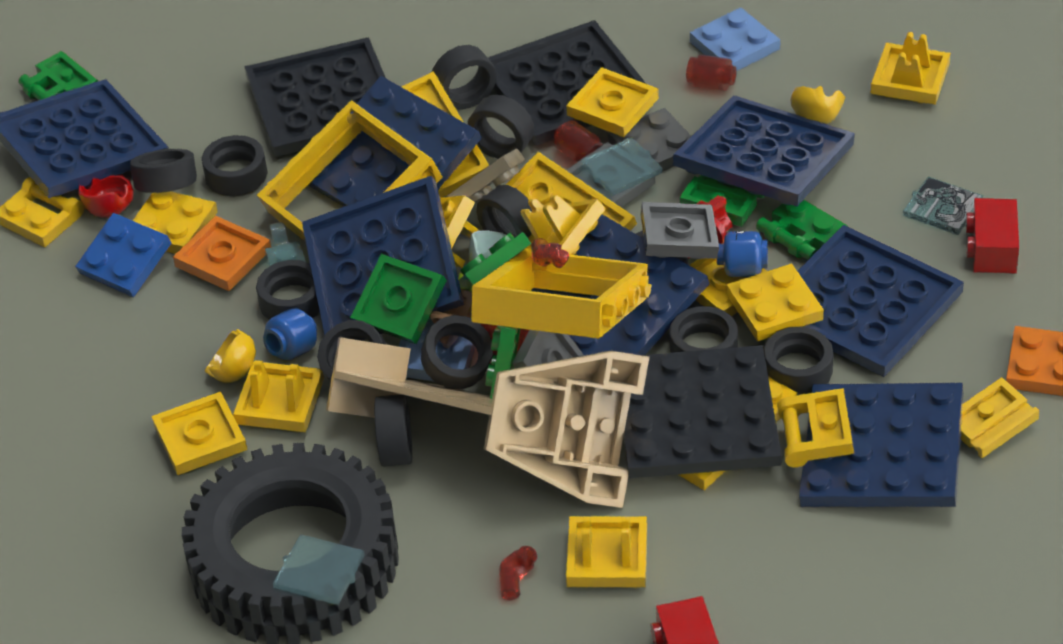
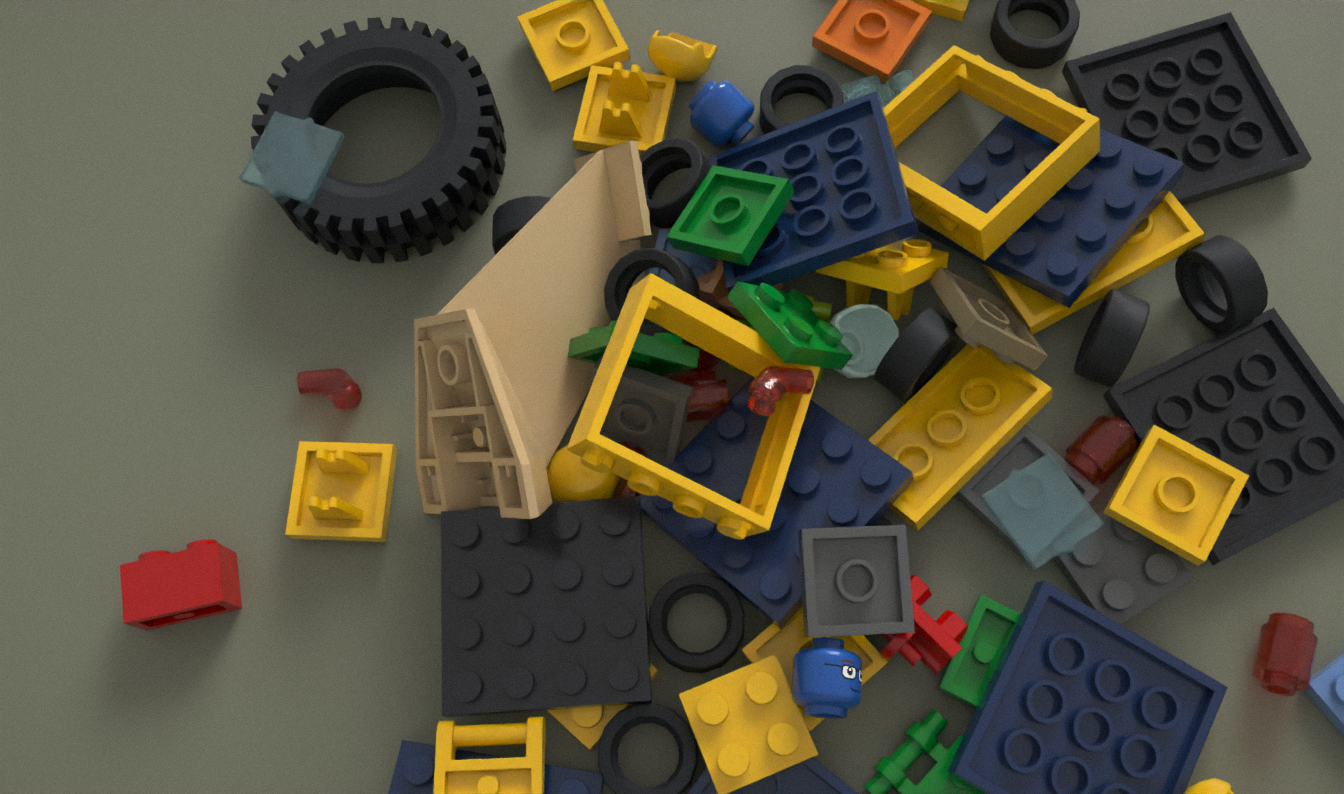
camera: 95 degrees right, 25 degrees up
(563, 222) = (872, 415): yellow plate -> none

